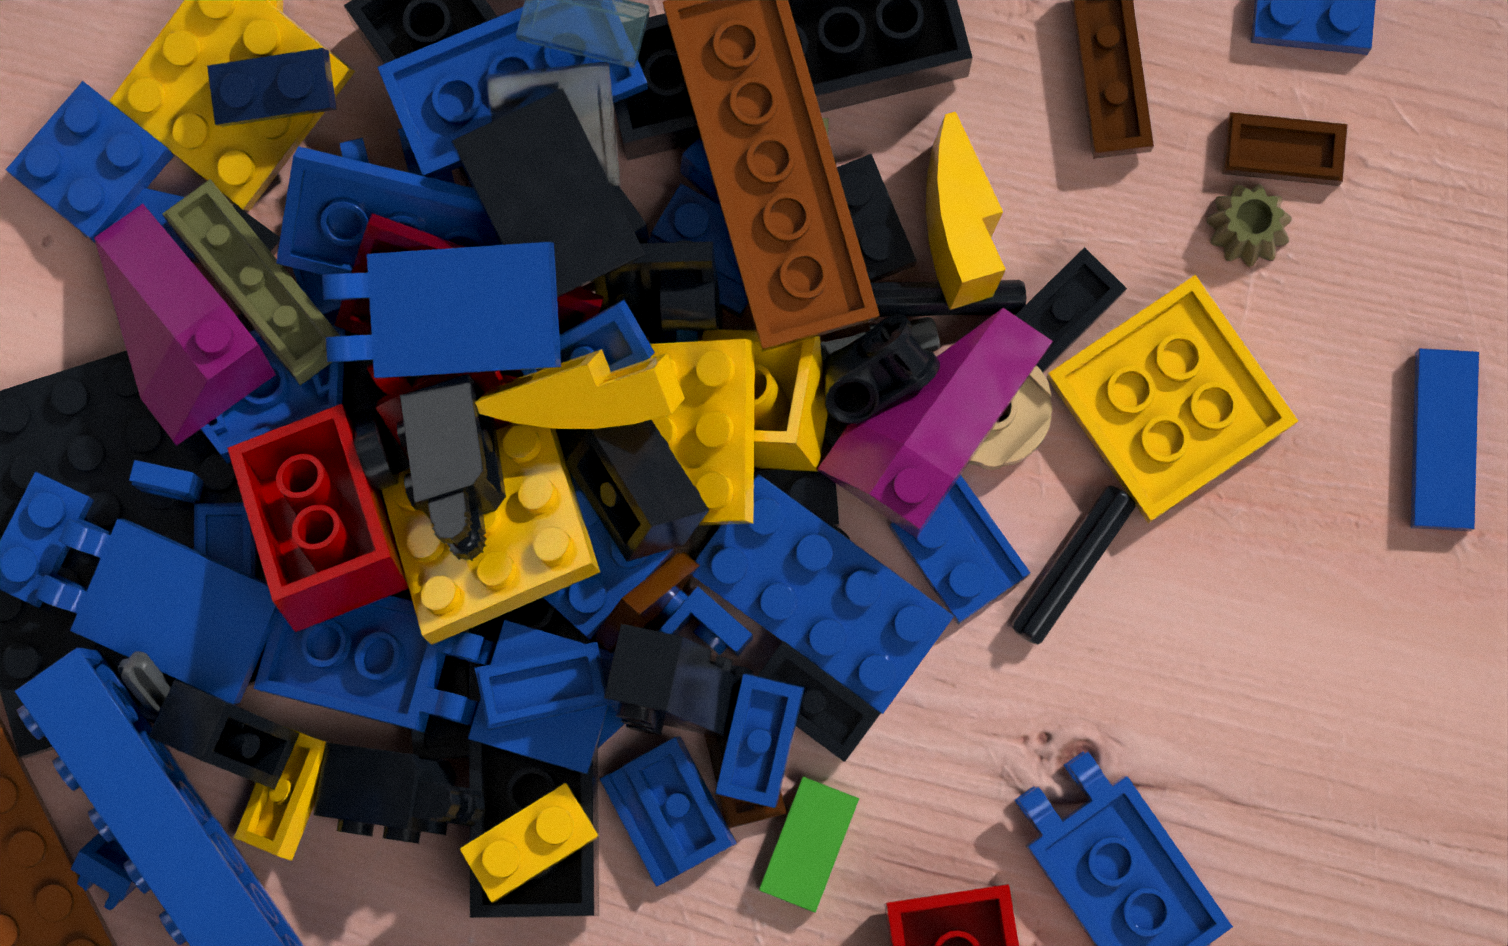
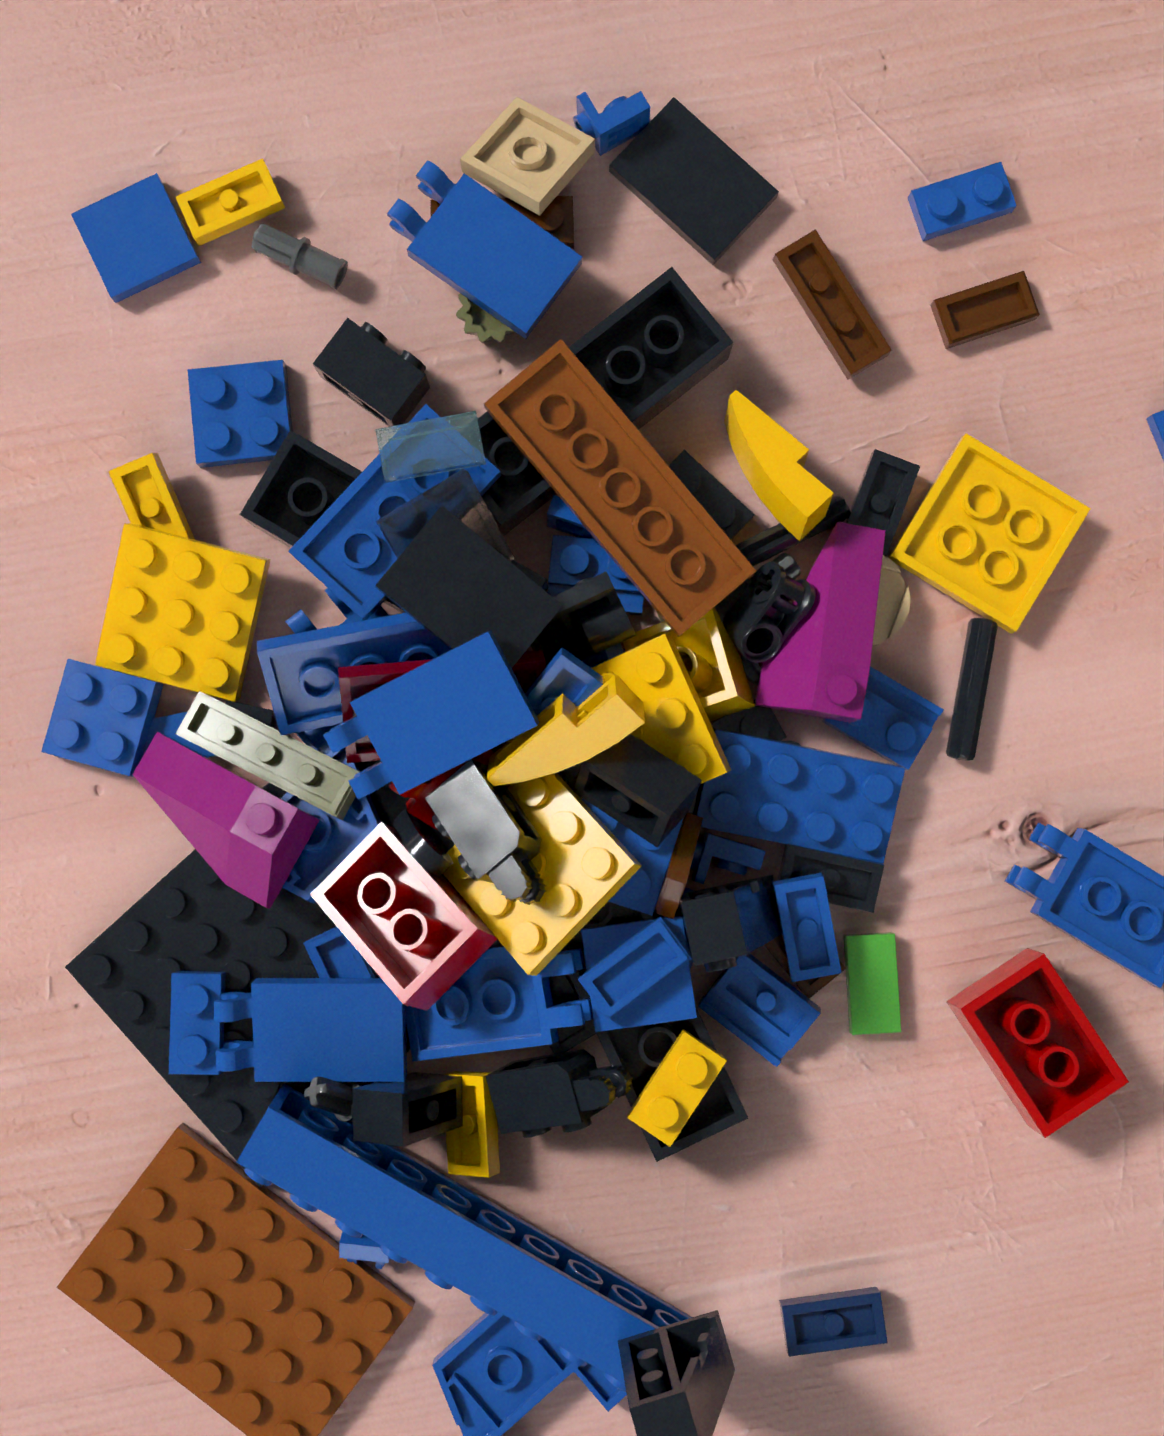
camera: 25 degrees left, 5 degrees up
(166, 481) = (274, 937): blue tile -> none
(272, 87) = (213, 601): dark blue plate -> none
(1249, 224) = (983, 377): olive piece -> none

